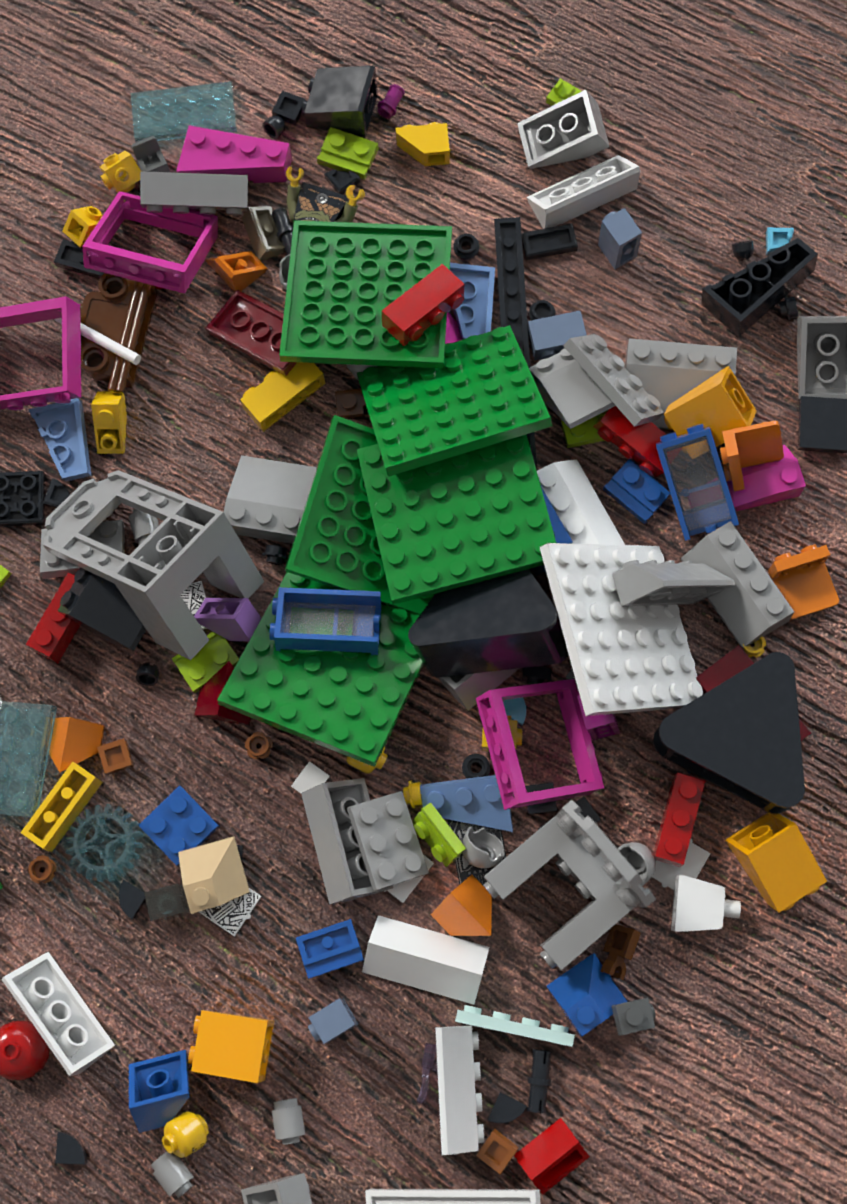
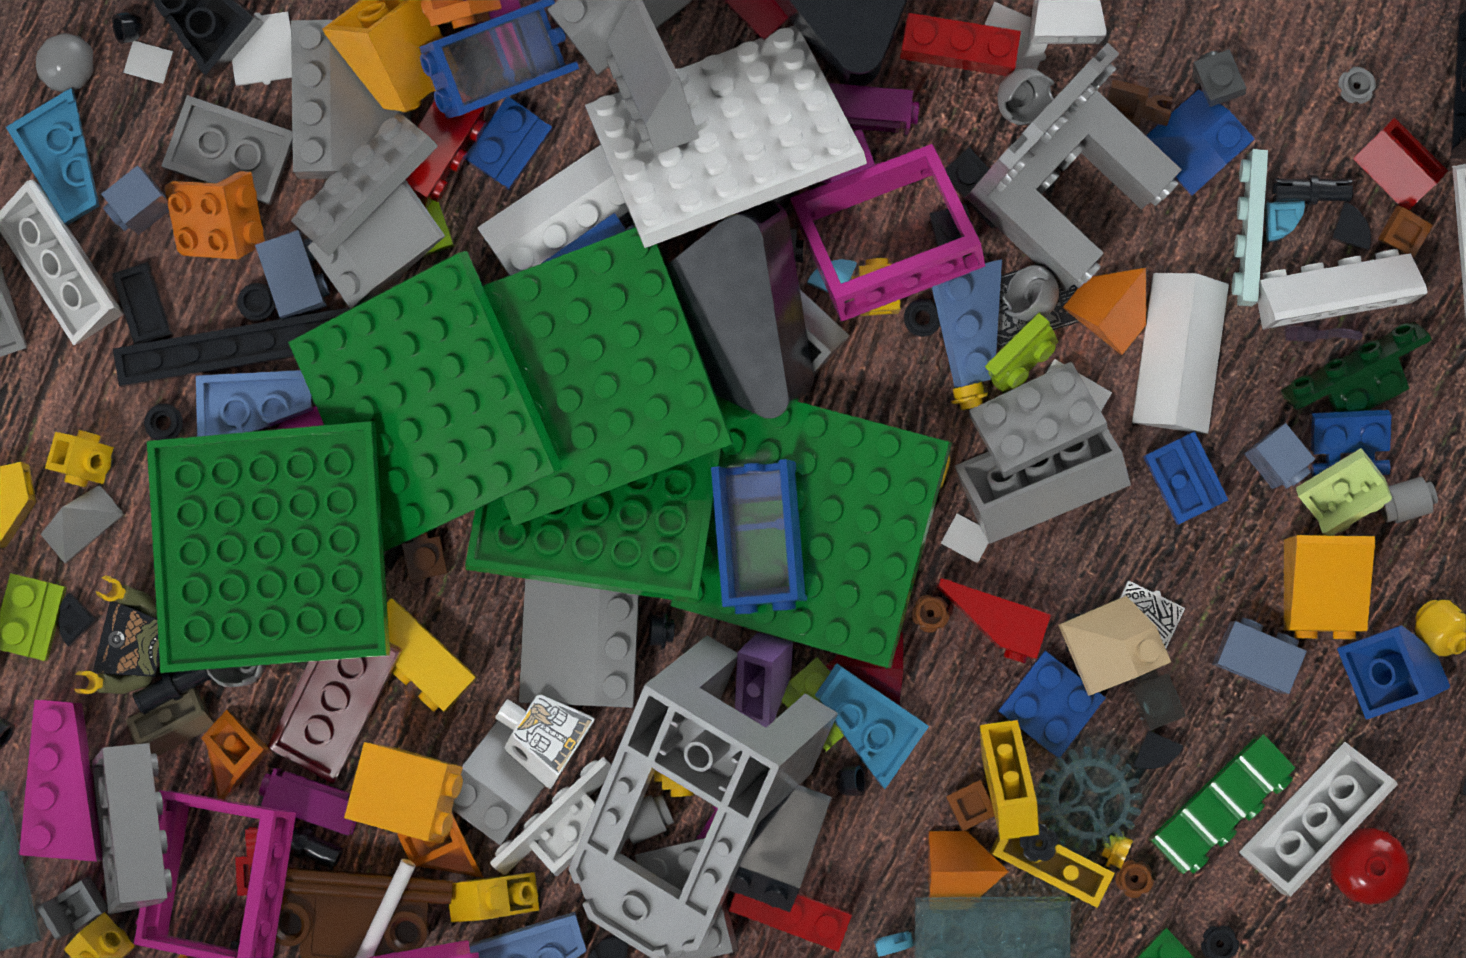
camera: 105 degrees left, 10 degrees up
(27, 687) = (893, 943): none -> medium azure tile
(63, 859) = (1117, 852): none -> yellow plate
(80, 796) = (1047, 849): none -> black plate
(83, 941) = (1221, 803): none -> green brick
(123, 779) = (1009, 780): none -> yellow brick
(147, 462) = (559, 828): none -> white bracket
(153, 394) = (450, 856): none -> orange slope
(167, 307) = (315, 848): none -> black pin
(183, 692) = (871, 722): none -> dark azure wing
(186, 362) = (404, 792): none -> light orange slope
(187, 986) = (1260, 656): none -> sand blue brick
(190, 437) = (495, 787): none -> light grey slope
(194, 312) = (308, 799): none -> magenta window
(212, 464) = (544, 735): none -> white torso
(242, 797) = (1004, 622): none -> red slope
(299, 1070) = (1345, 493): none -> yellowish green bracket
(345, 1082) = (1347, 433): none -> blue plate
(388, 1098) = (1363, 376): none -> dark green bracket
(406, 190) = (81, 523): none -> light grey slope
(423, 305) = (288, 458): red brick -> none
(447, 189) = (79, 458): none -> yellow brick
(519, 1054) = (1282, 218): none -> medium azure tile
(602, 290) = (215, 217): none -> orange bracket
(626, 1130) = (1361, 76): none -> light grey plate
(636, 746) = (877, 107): none -> magenta window
(650, 303) = (220, 142): none -> light grey plate
(658, 196) = (58, 156): none -> dark azure wing
(714, 333) = (267, 53): none -> white piece
(717, 262) = (148, 62): none -> white sticker
(722, 207) = (65, 62): none -> light grey hair

